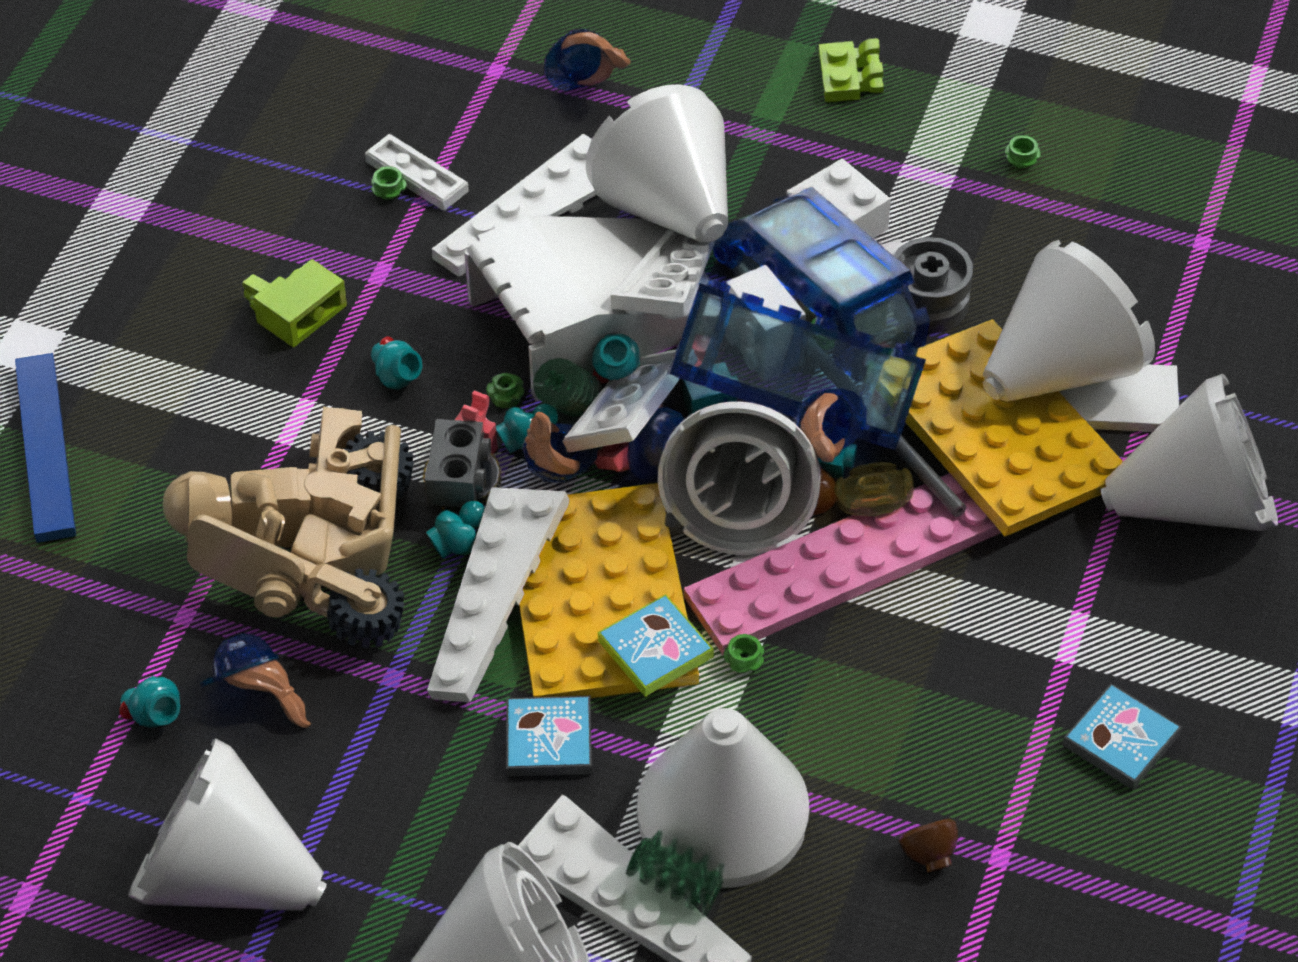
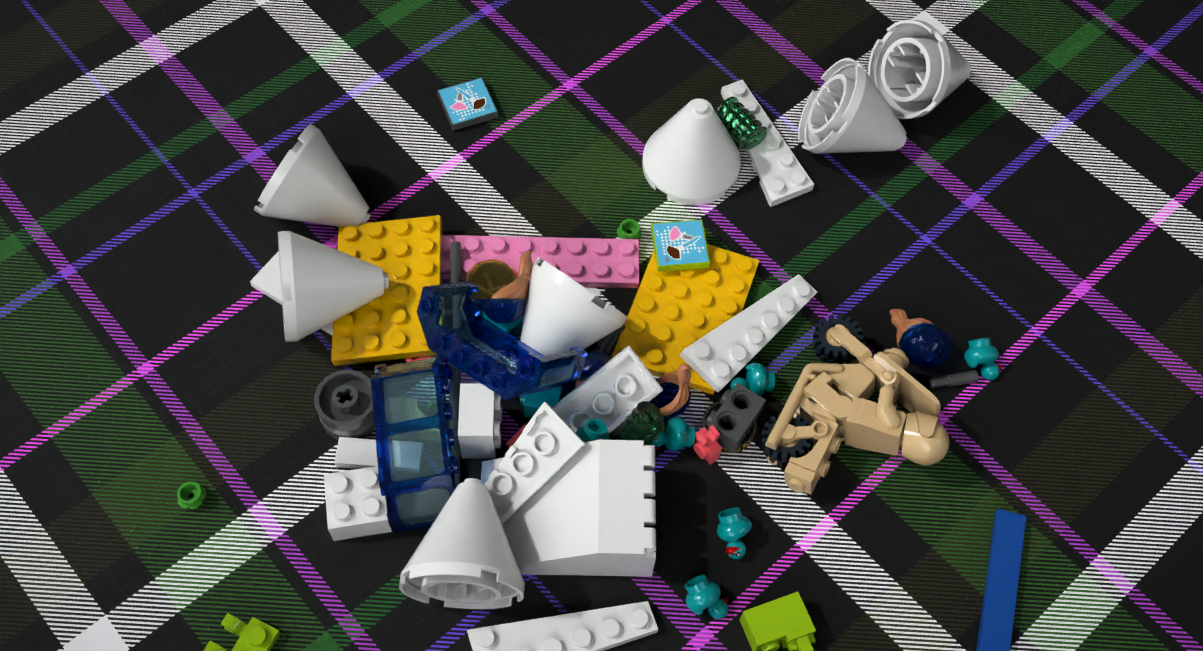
camera: 155 degrees left, 10 degrees up
(187, 663) = (954, 379): none -> flat silver pin
(227, 846) = (982, 232): white cone -> none
(395, 293) = (704, 595): none -> teal animal
(505, 390) = (664, 484): bright green plate -> none
(548, 736) = (761, 239): tile -> none
(931, 844) = (602, 94): reddish brown brick -> none

